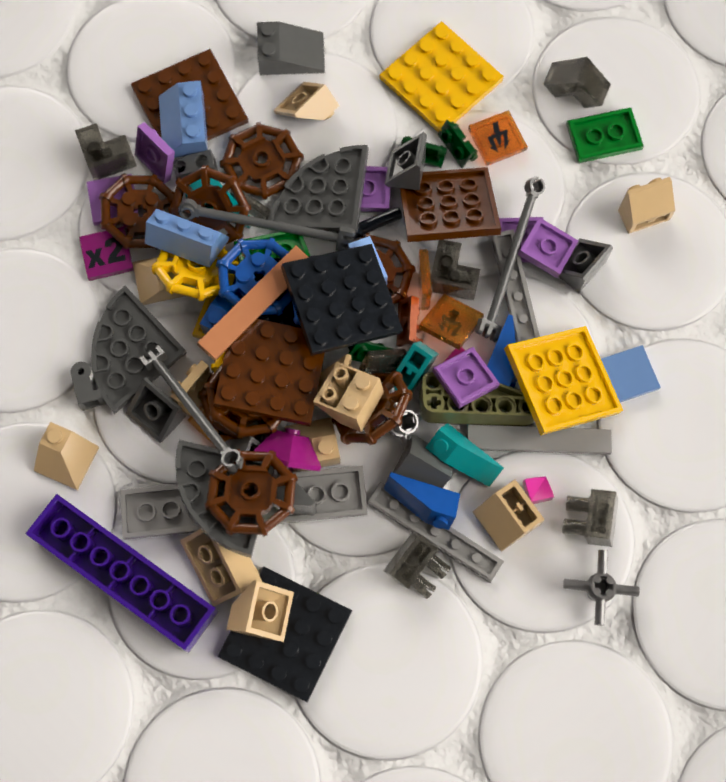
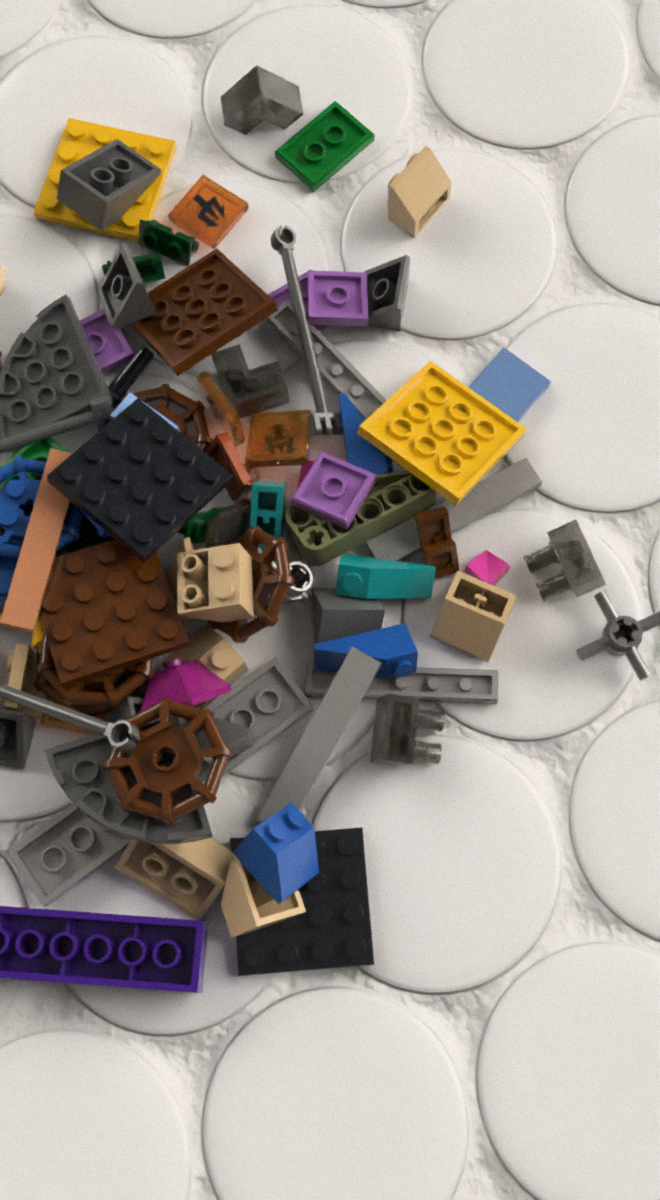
camera: 25 degrees left, 0 degrees up
(289, 594) = (281, 853): none -> blue slope
(357, 537) = (322, 733): none -> light grey tile
(439, 82) = (106, 183): none -> dark grey slope
(515, 451) = (436, 541): none -> reddish brown slope

